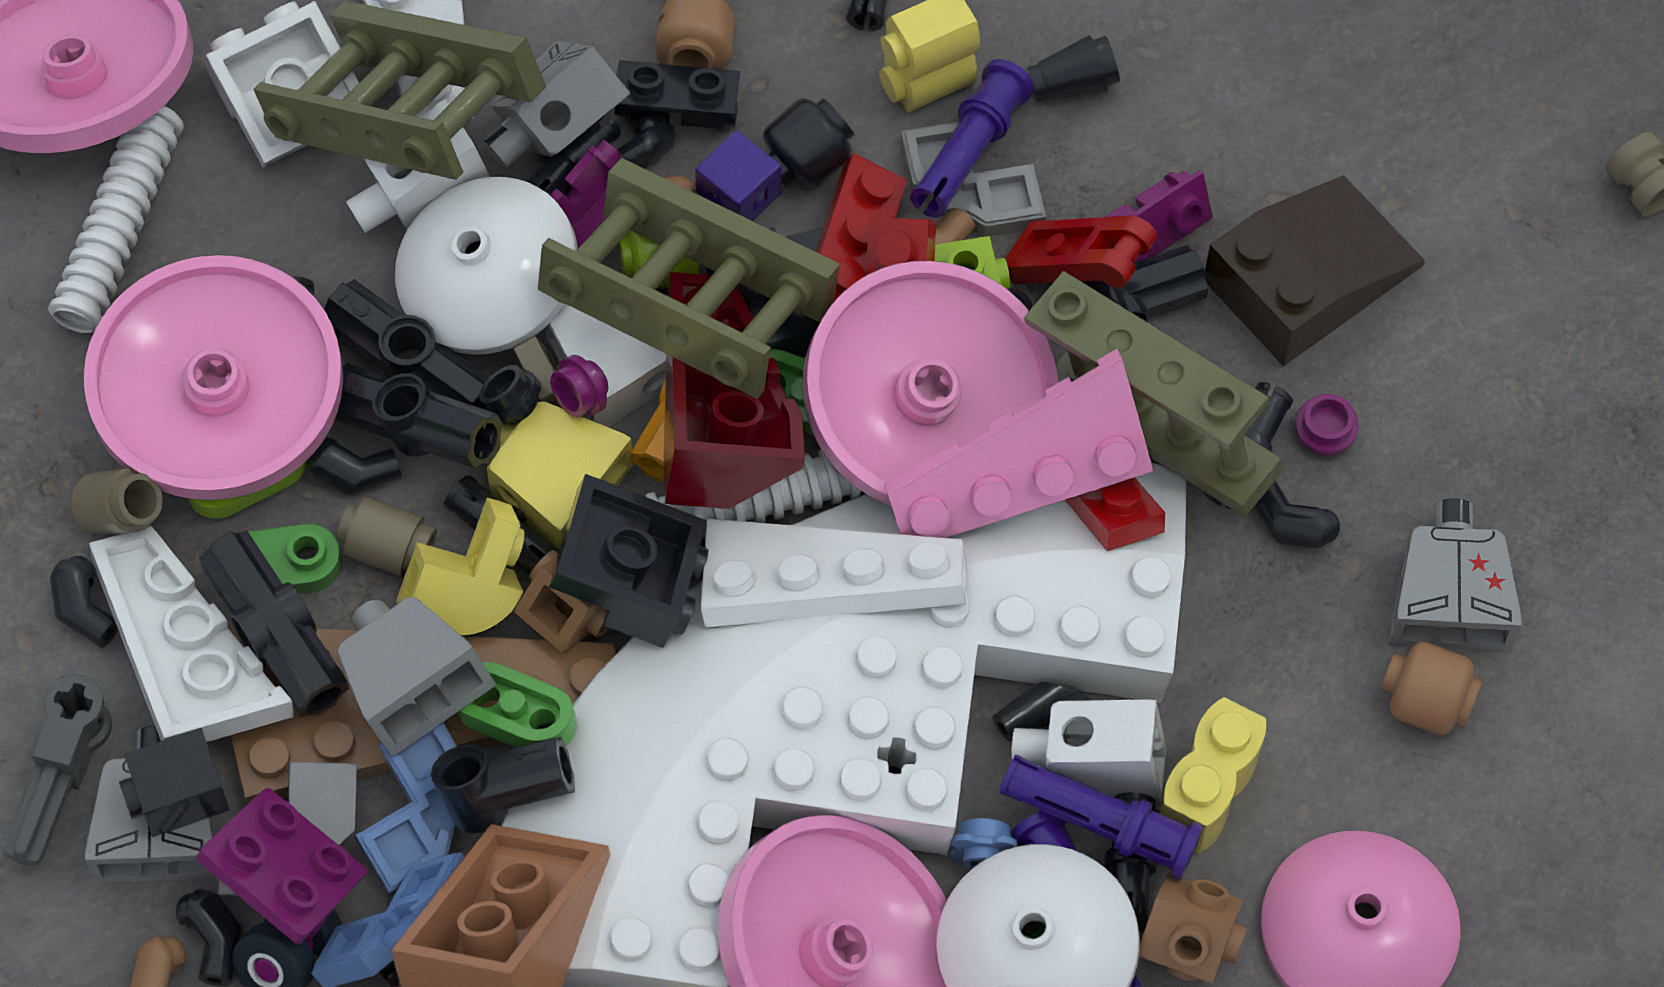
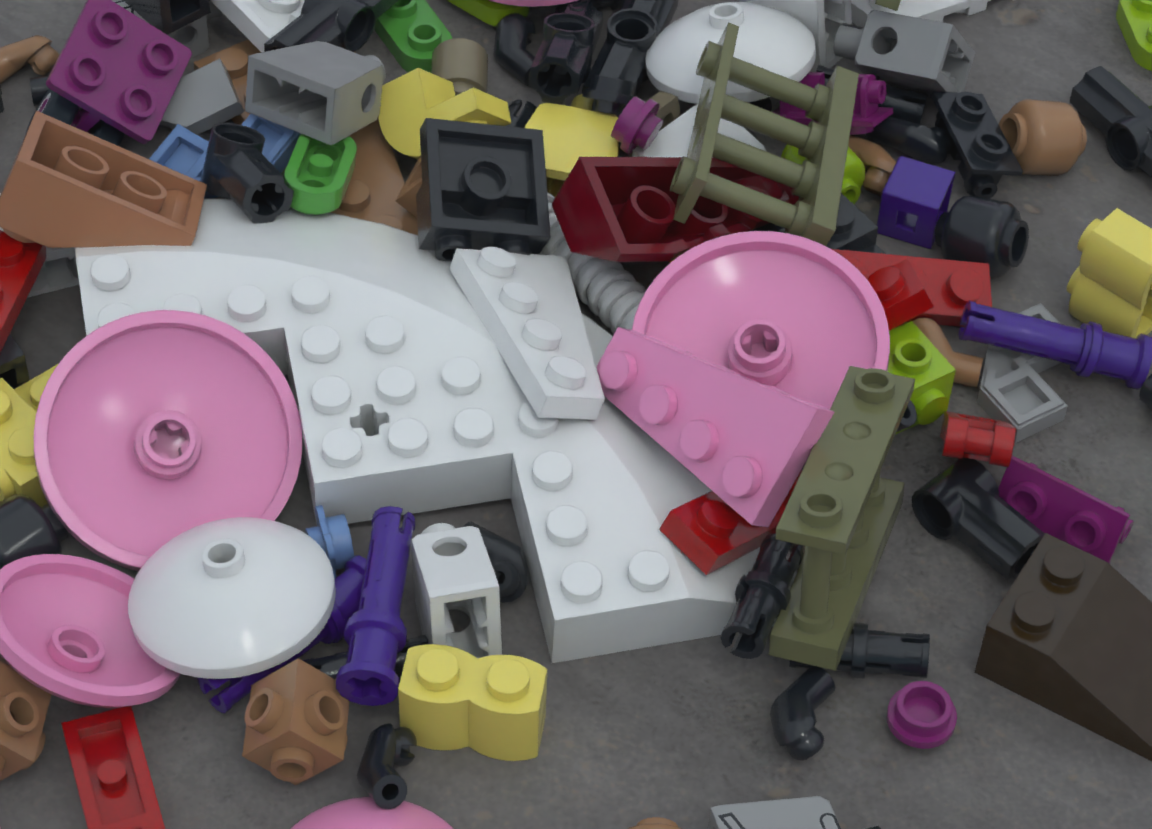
camera: 70 degrees right, 15 degrees down
(1199, 498) = (761, 597): none -> black pin
(1245, 880) = (377, 772): none -> black arm

